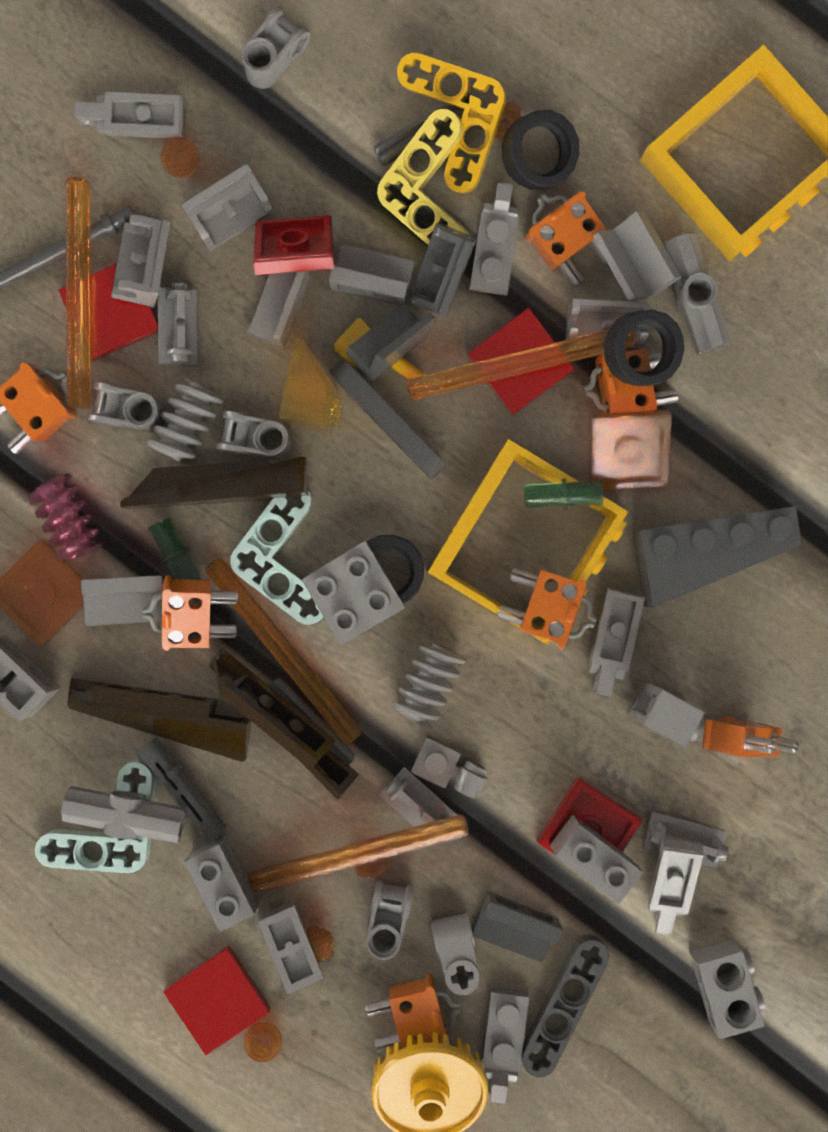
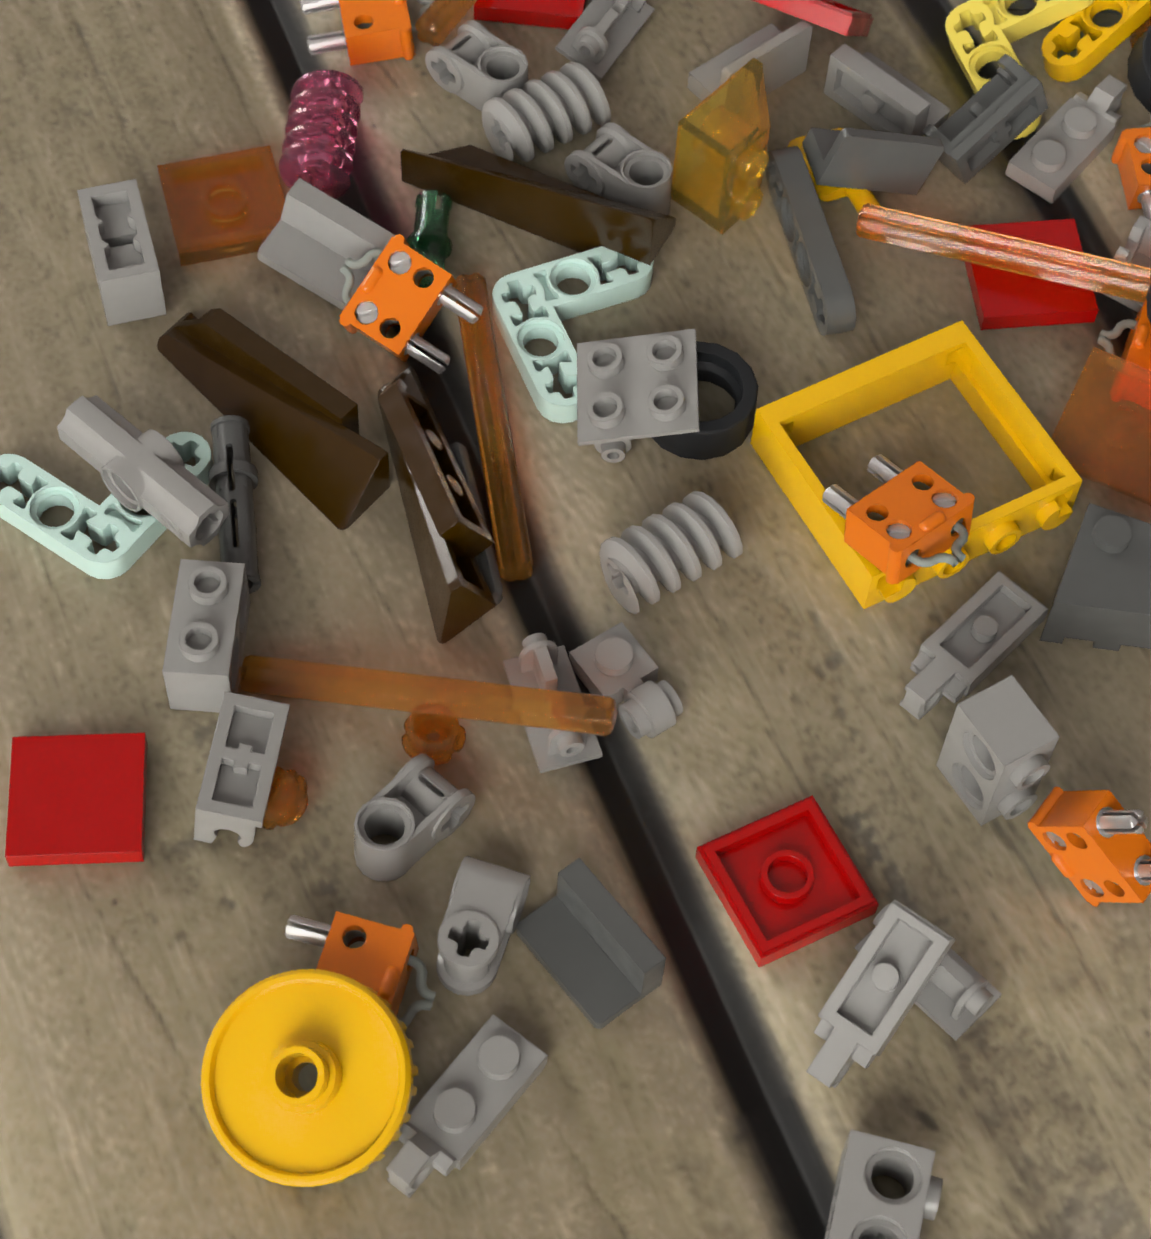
camera: 25 degrees right, 30 degrees down
(260, 1052) = (96, 874): clear orange plate -> none
(563, 494) = (1002, 406): clear green axle -> none
(569, 1007) = (601, 1115): dark grey beam -> none
(596, 859) = (777, 886): light grey brick -> none

